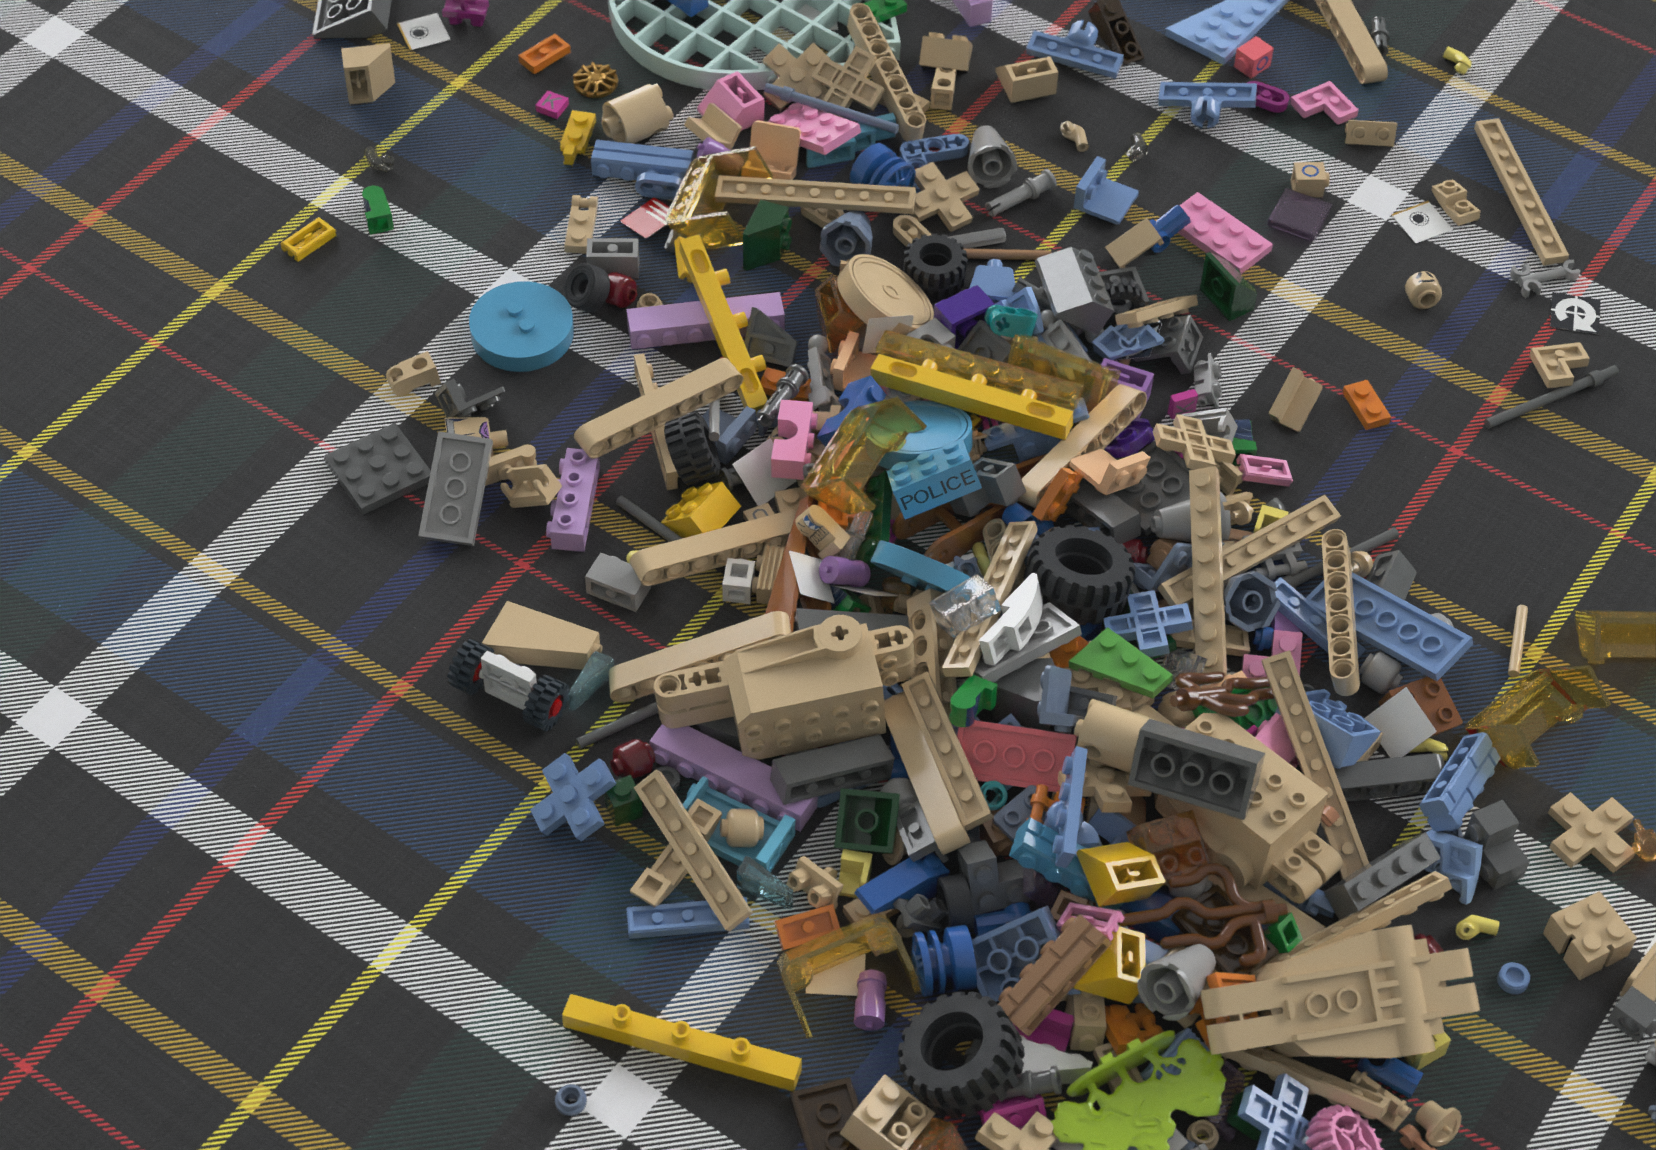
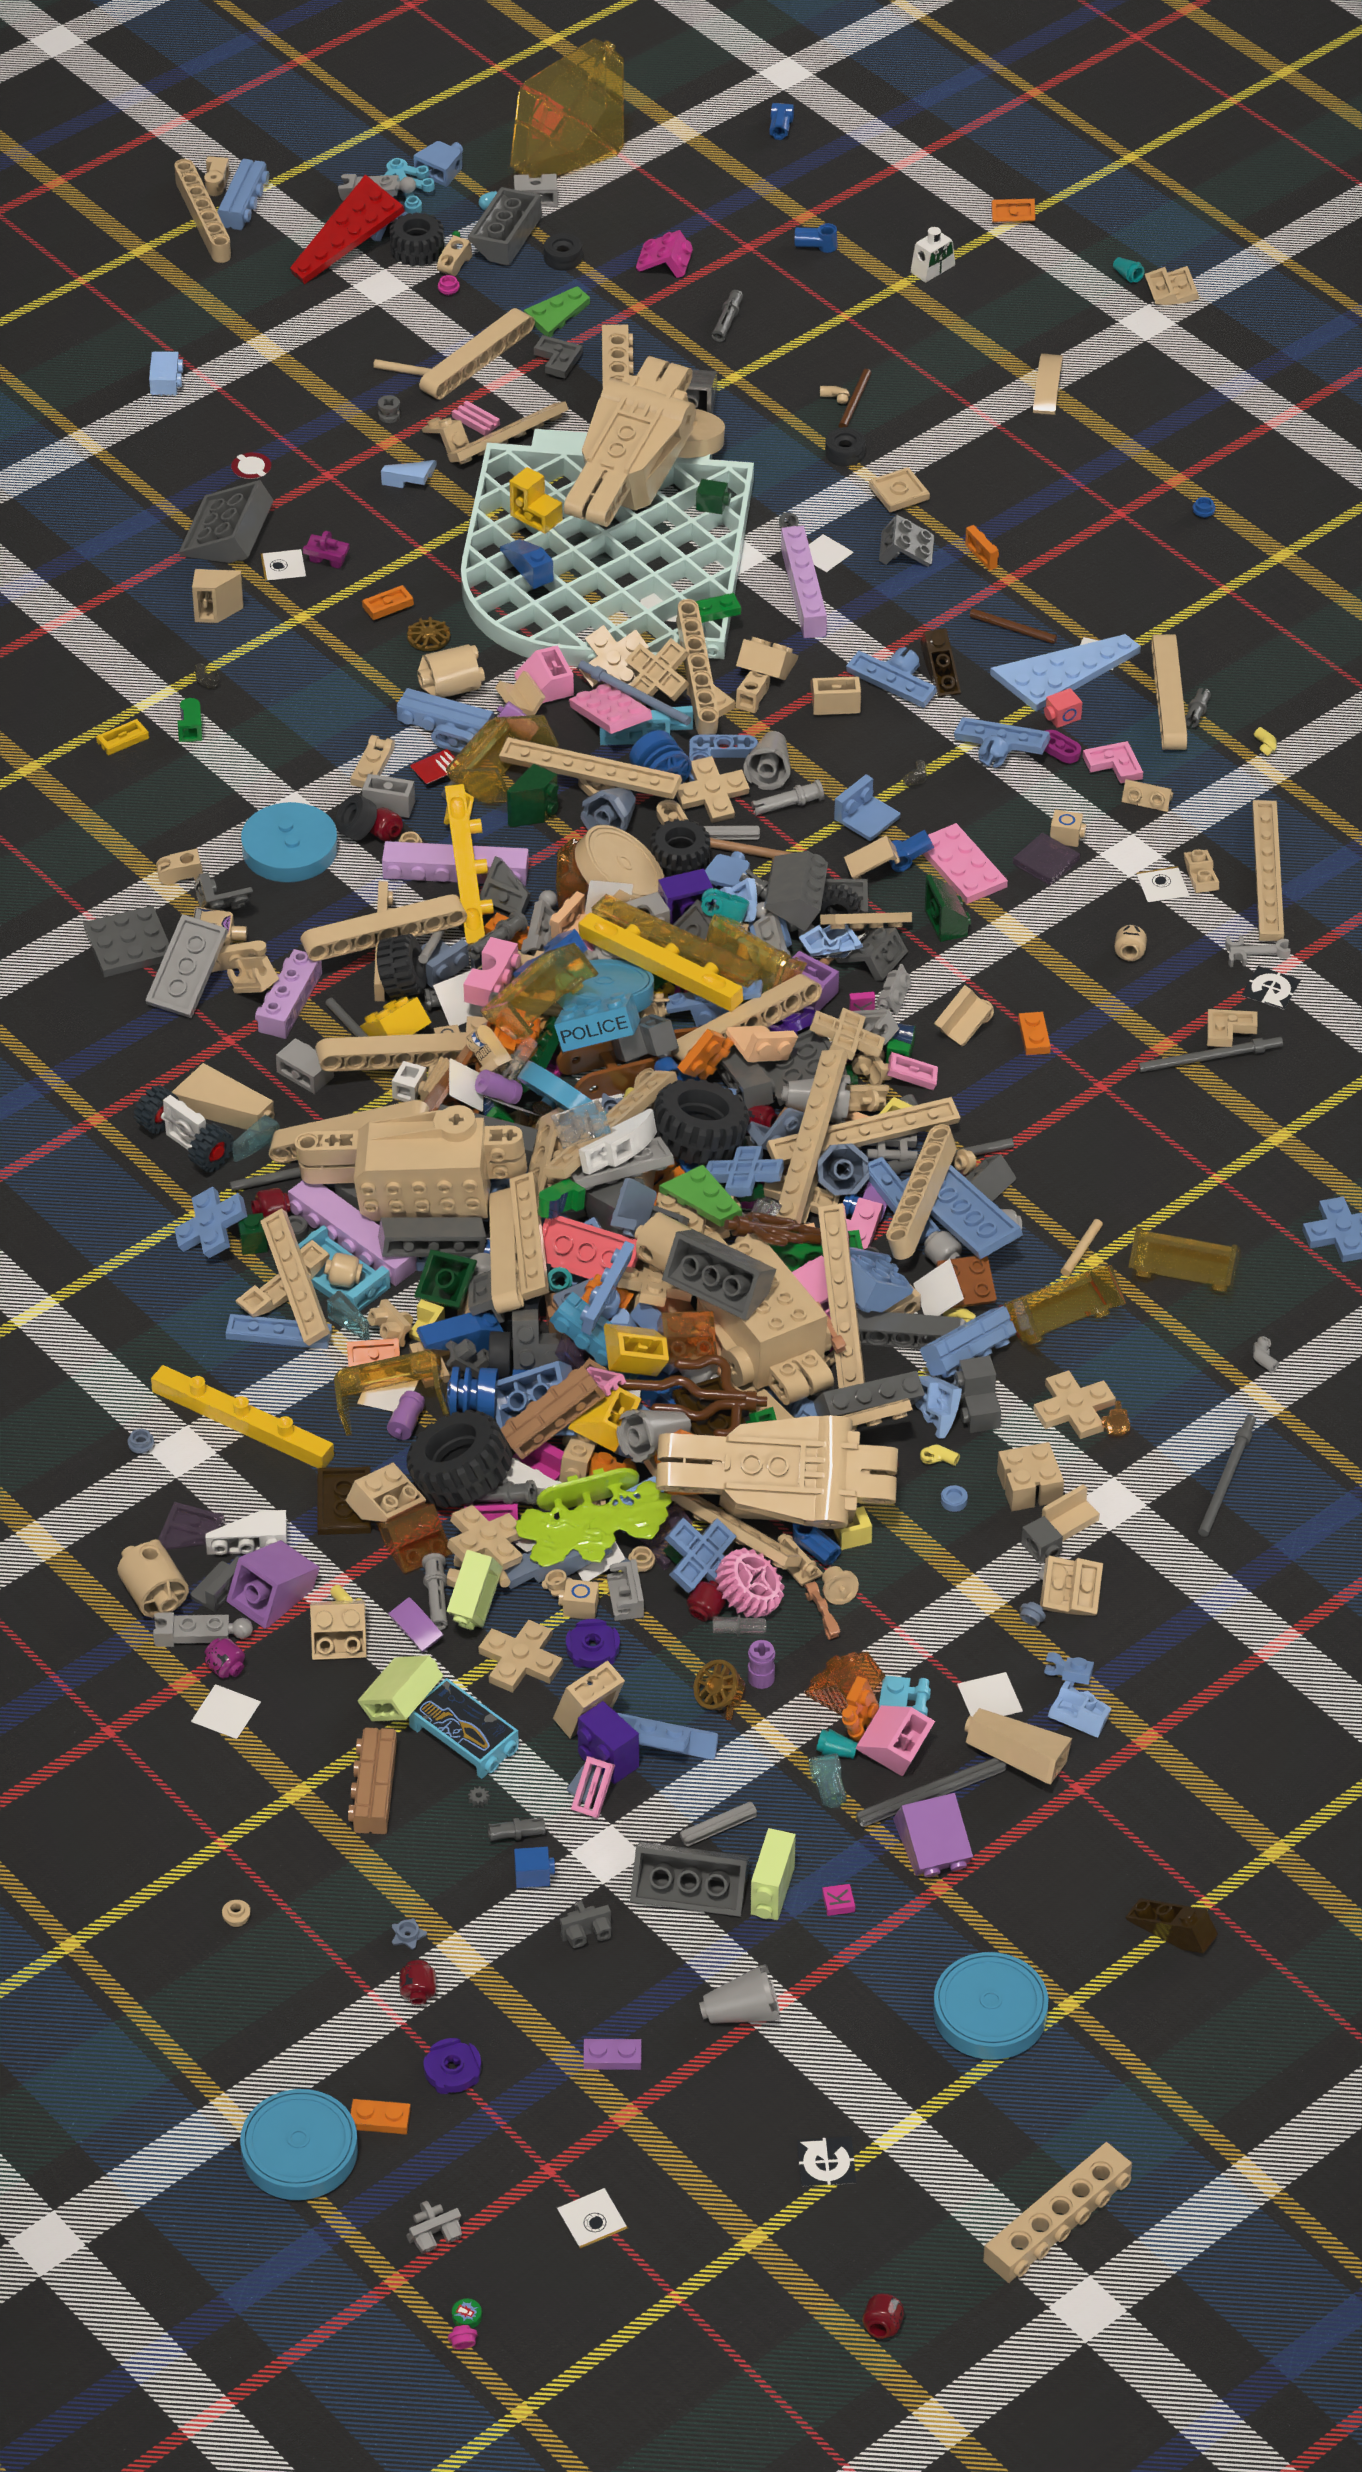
camera: 15 degrees right, 5 degrees down
(552, 104) = (380, 650): dark pink tile -> none
(577, 135) = (394, 682): yellow hinge -> none
(778, 147) = (570, 722): light nougat bracket -> none
(1076, 134) = (862, 752): tan arm -> none

